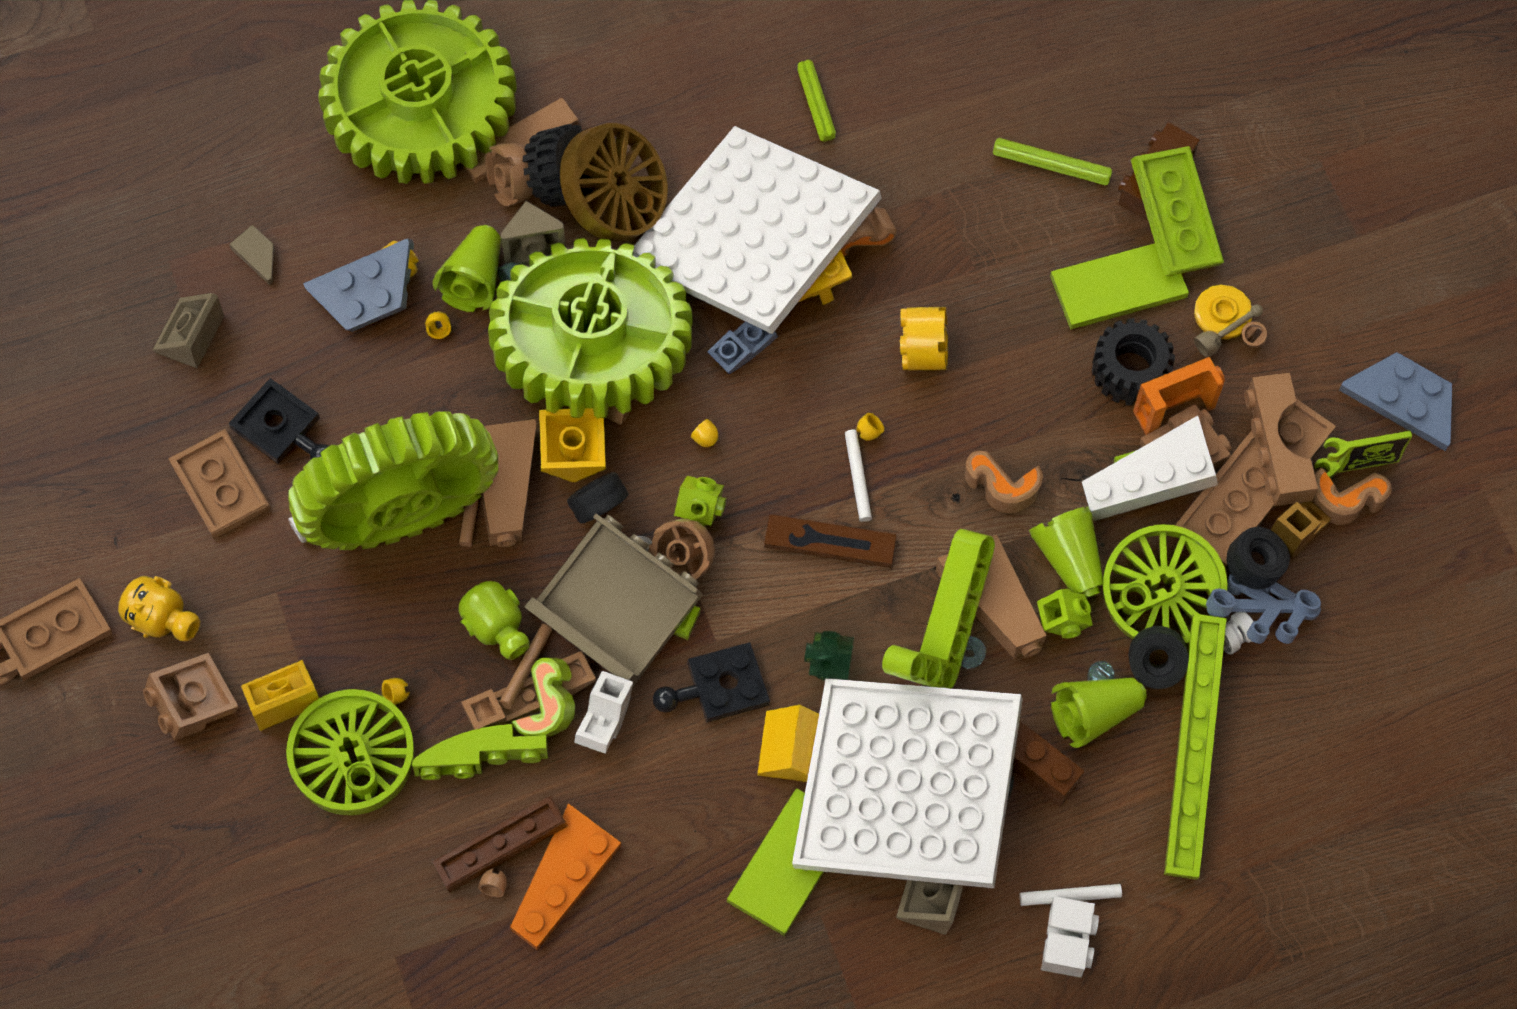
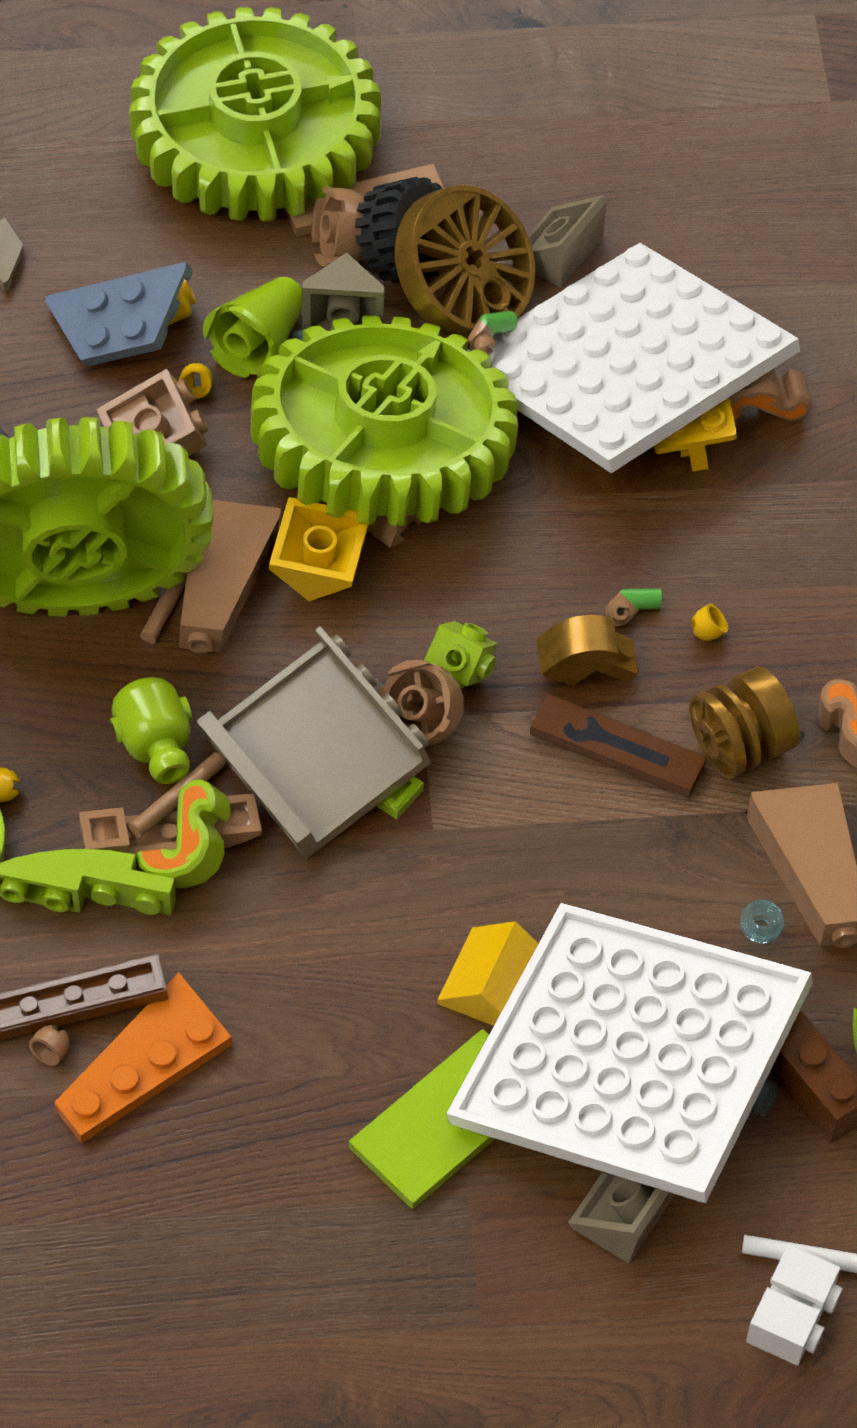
camera: 15 degrees right, 10 degrees down
(418, 370) = (160, 406): none -> medium nougat plate
(597, 497) = (335, 614): black tyre -> none
(605, 712) = (263, 871): white brick -> none
(644, 231) = (486, 327): none -> arm
(677, 135) = (567, 238): none -> dark tan slope
(705, 434) = (494, 580): yellow hinge -> none
(714, 699) = (409, 897): black plate -> none
(740, 346) = (569, 494): sand blue slope -> none
(786, 473) = (584, 645): none -> pearl gold brick
(807, 424) = (631, 601): none -> arm
(816, 100) = (753, 238): lime axle -> none
(829, 655) = (574, 876): clear green brick -> none
(858, 476) = (677, 678): white bar -> none
(918, 504) = (744, 722): none -> pearl gold wheel
(924, 338) = (810, 532): yellow brick -> none
(950, 617) = (746, 866): lime beam -> none

